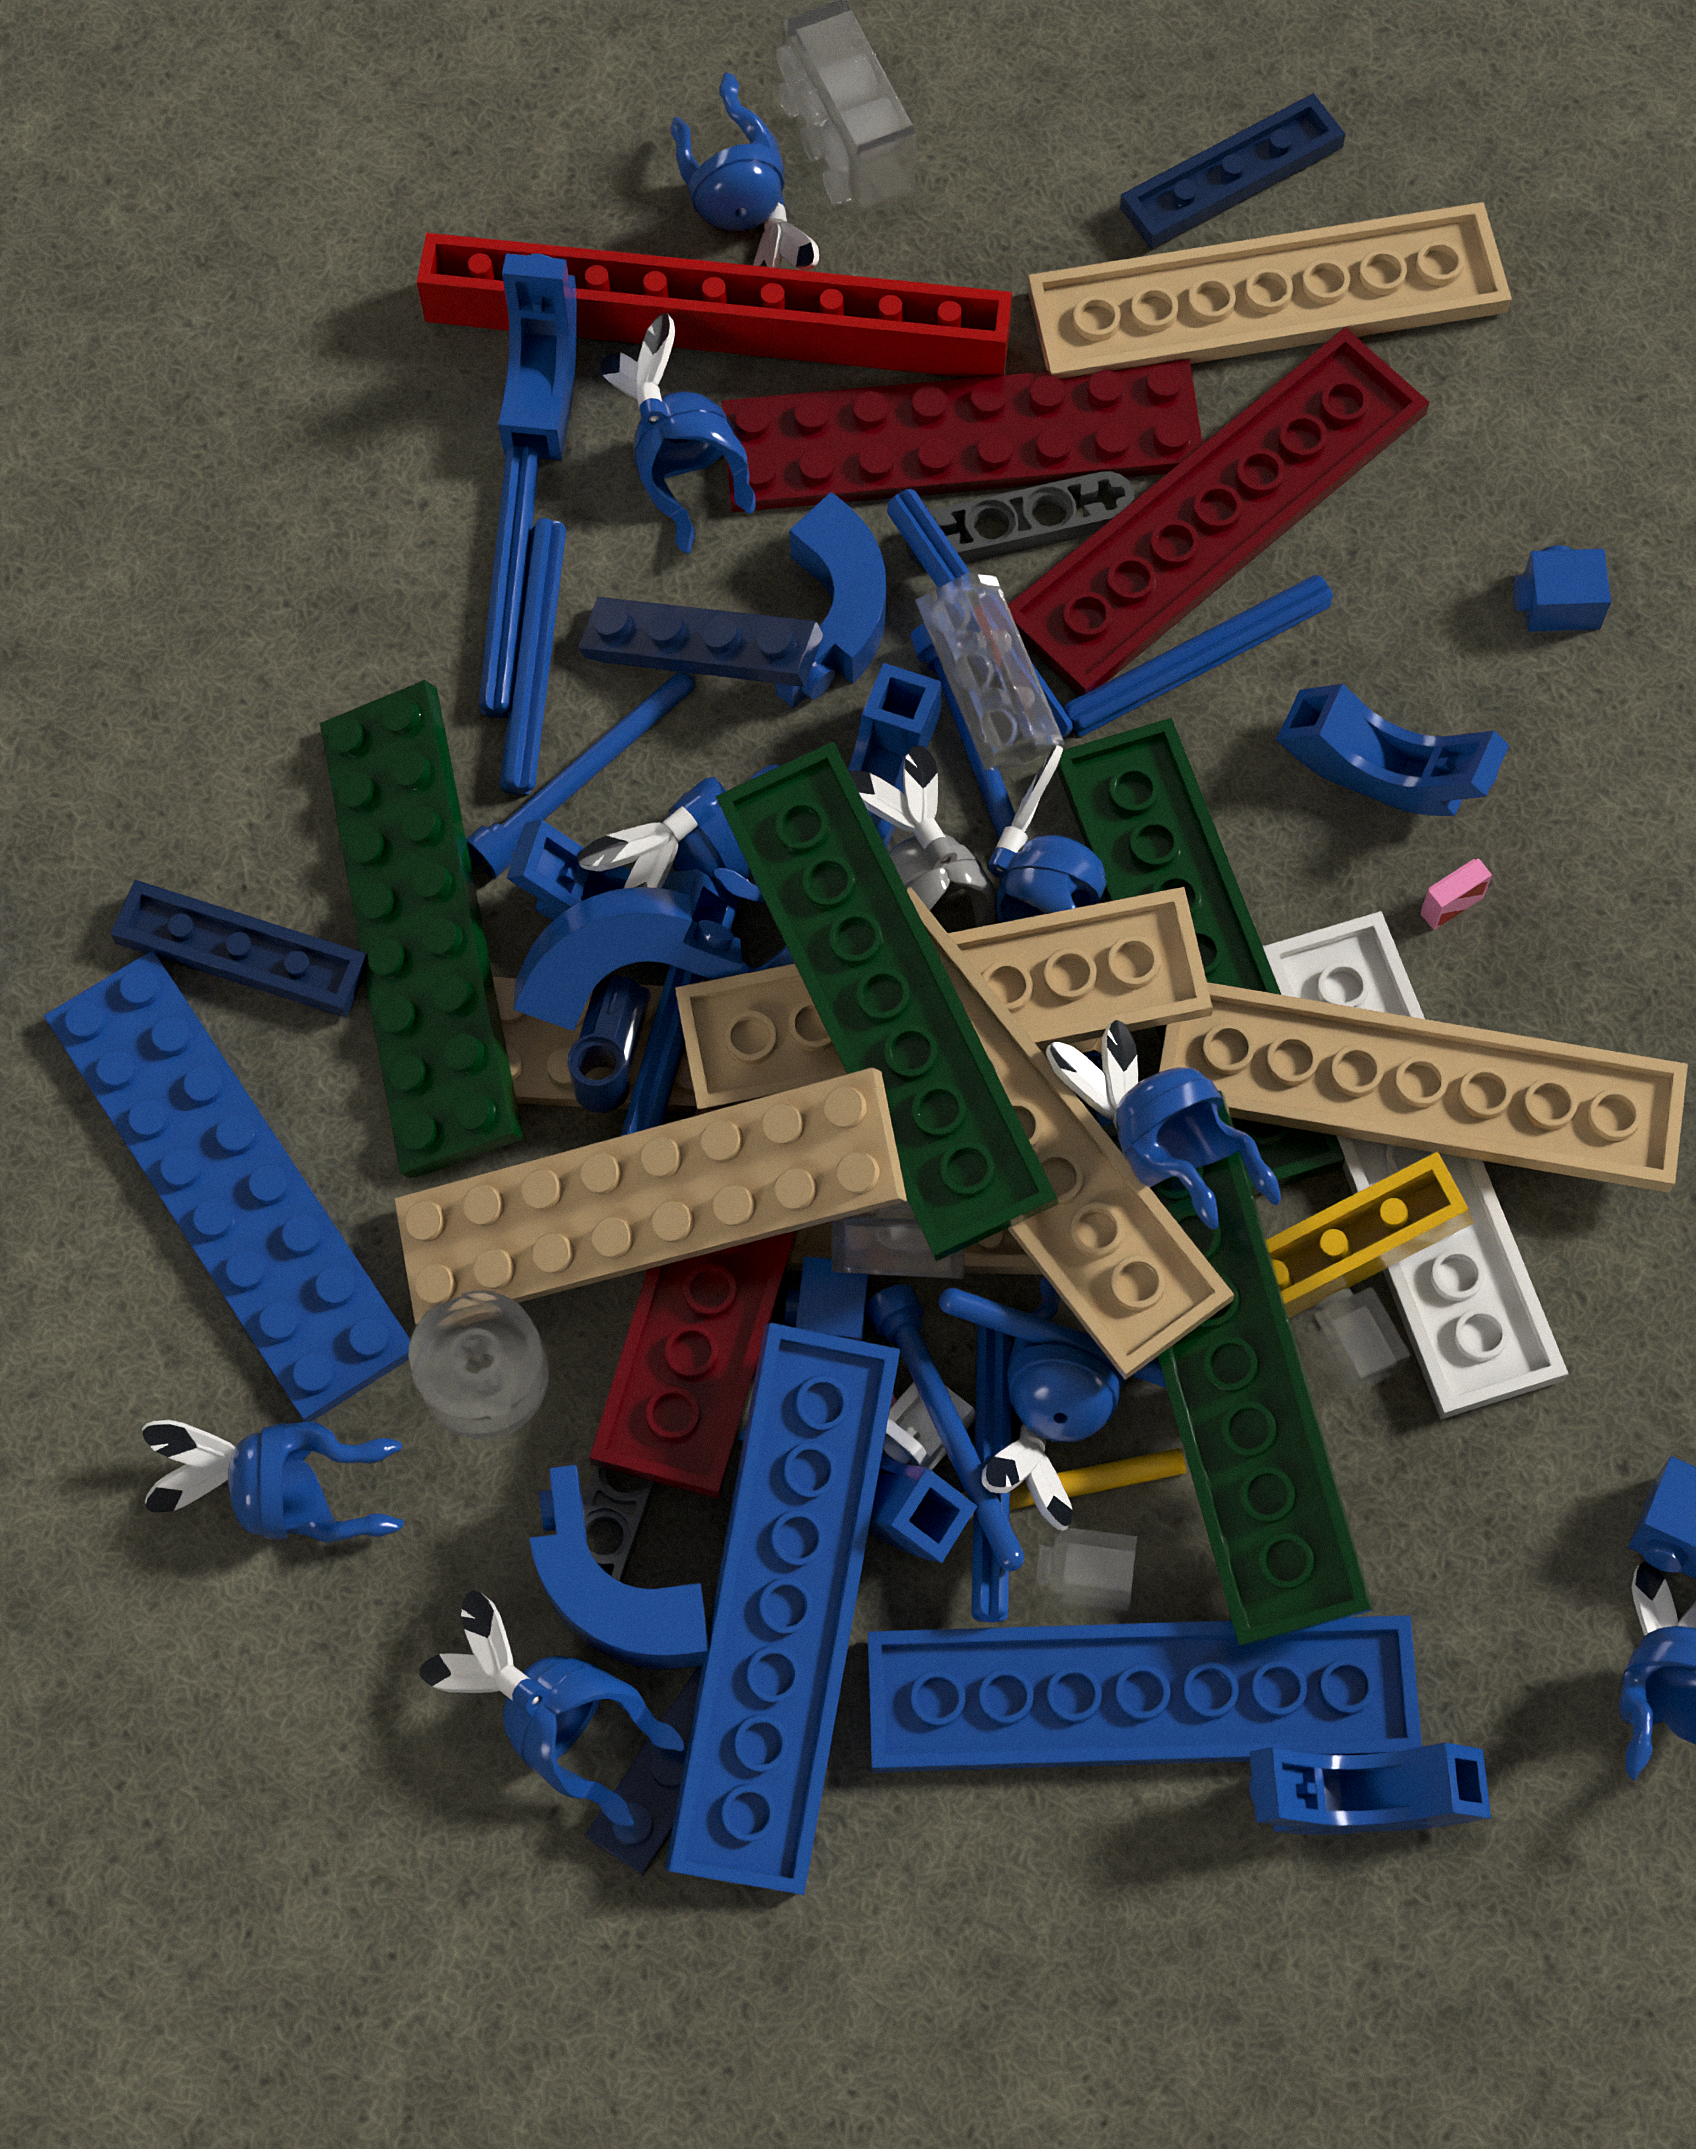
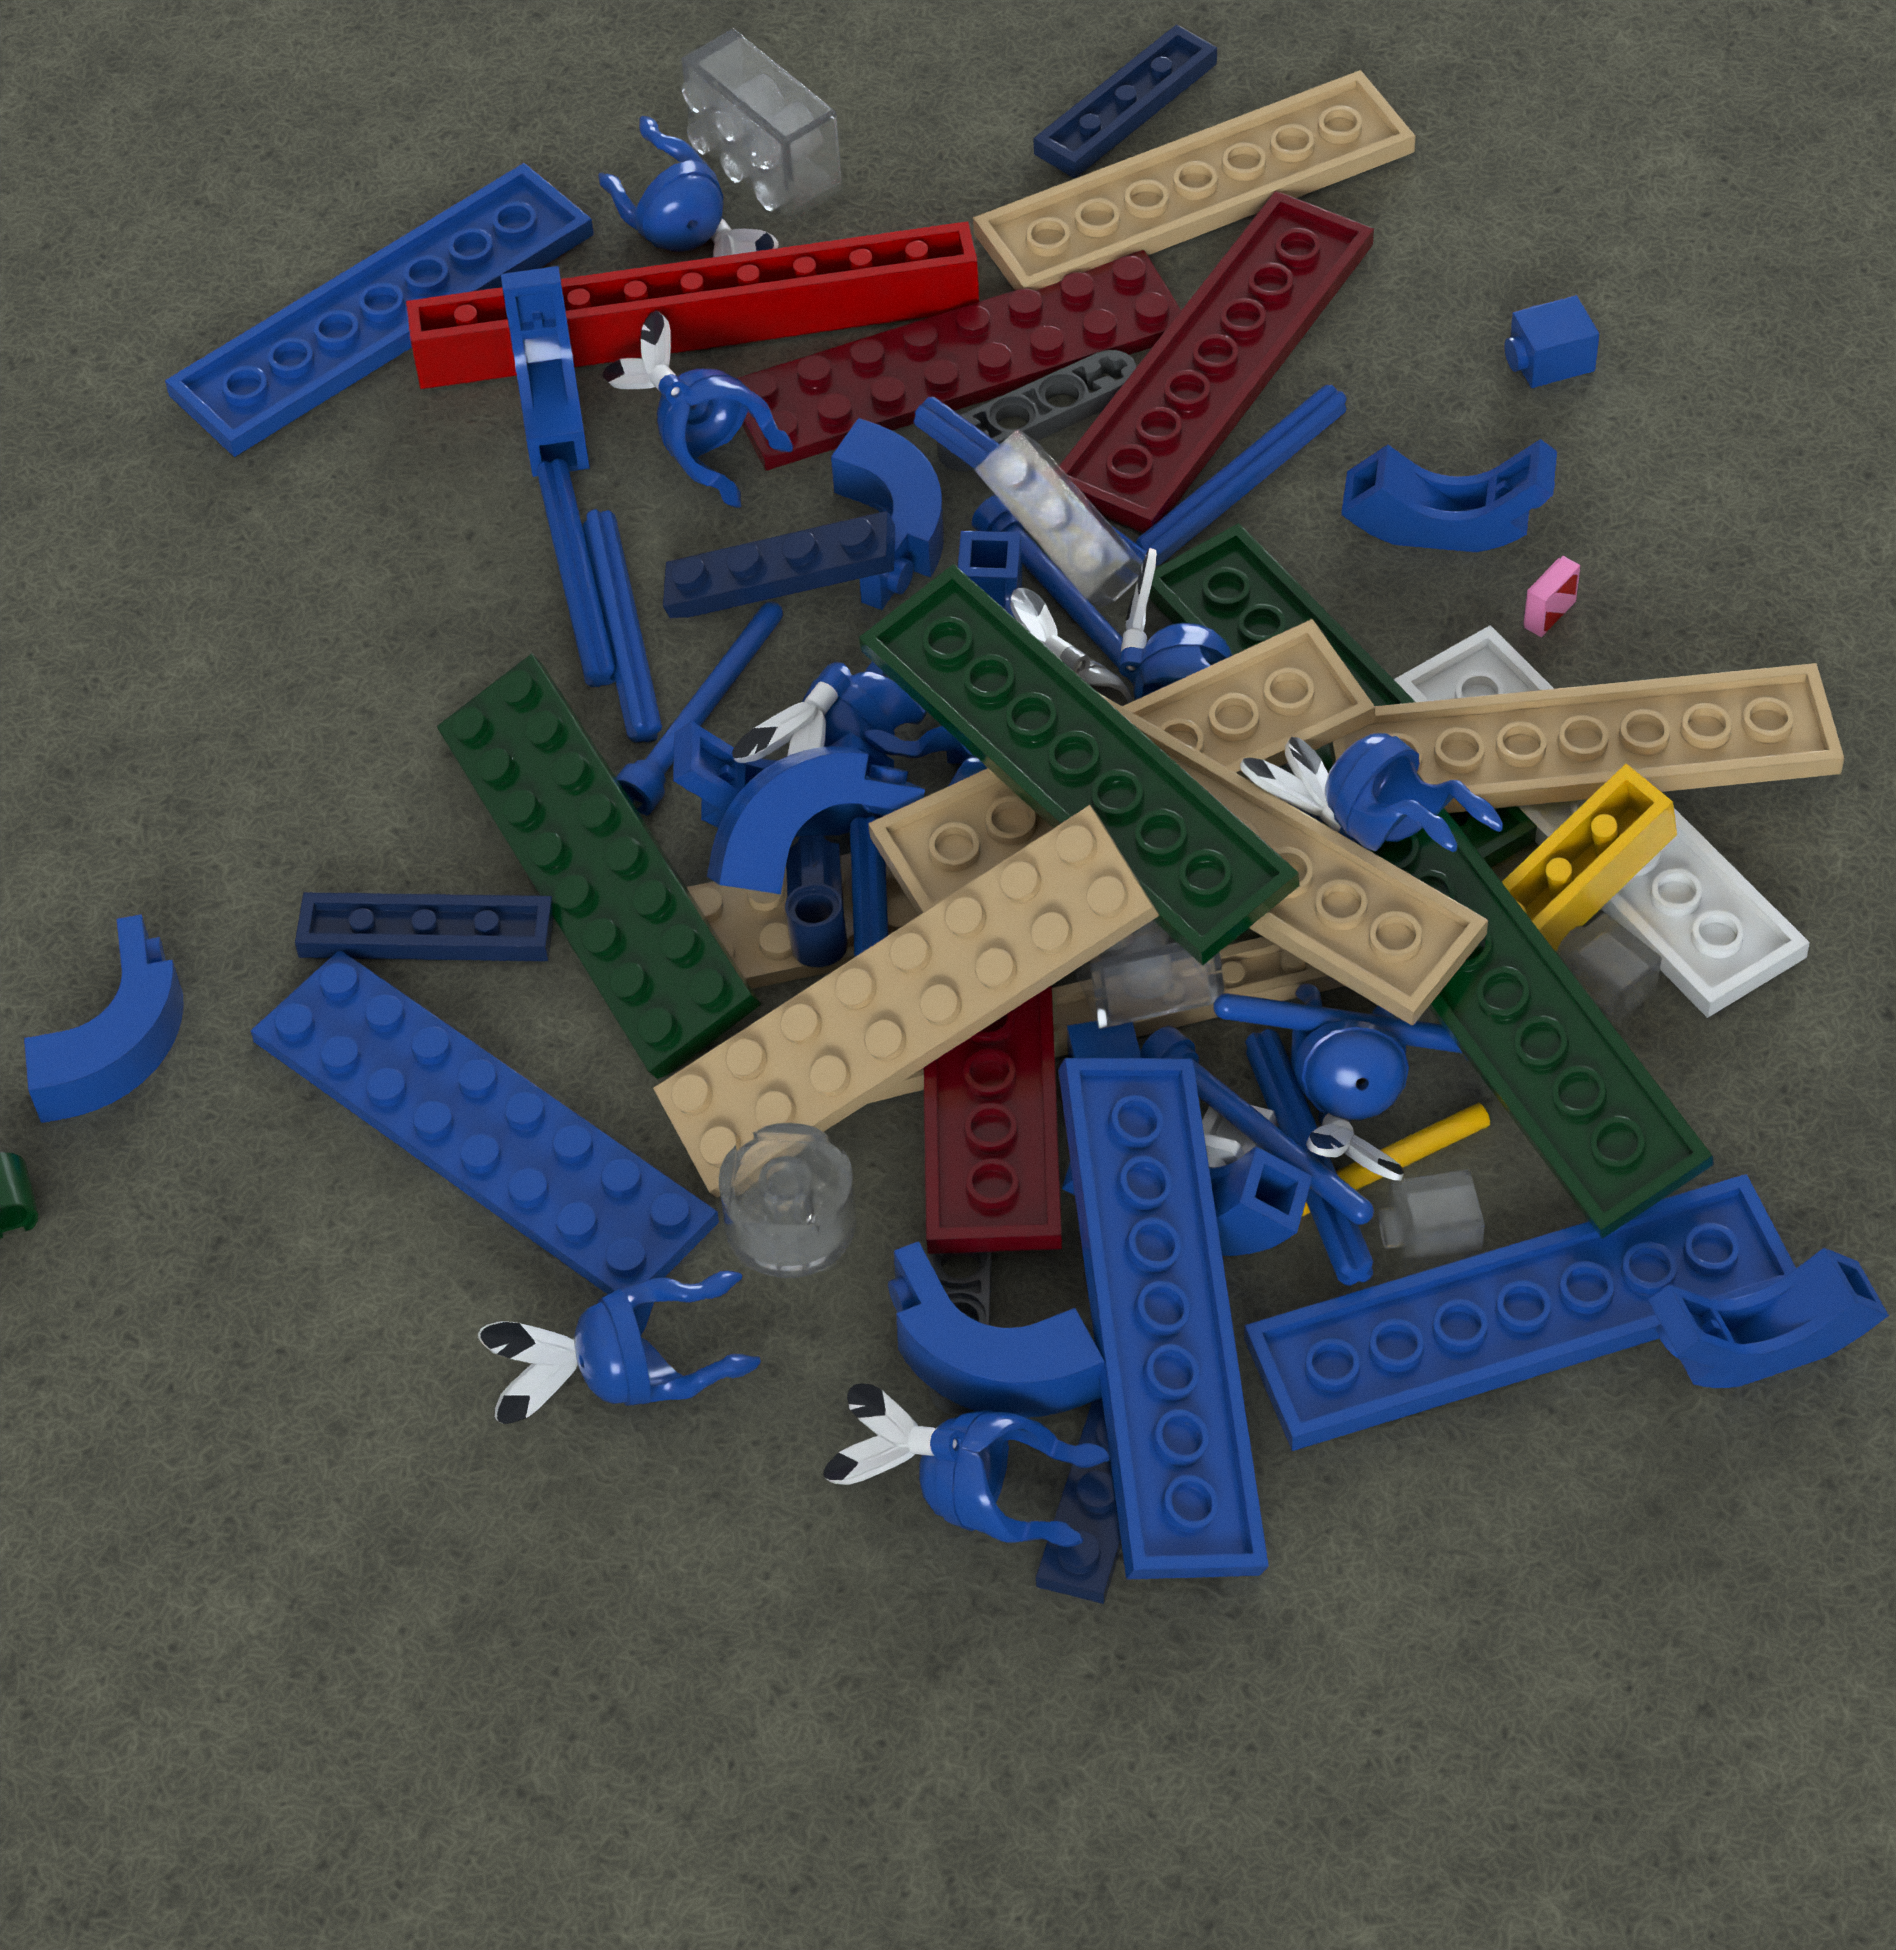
camera: 15 degrees left, 15 degrees down
(377, 225) = (362, 315): none -> blue plate

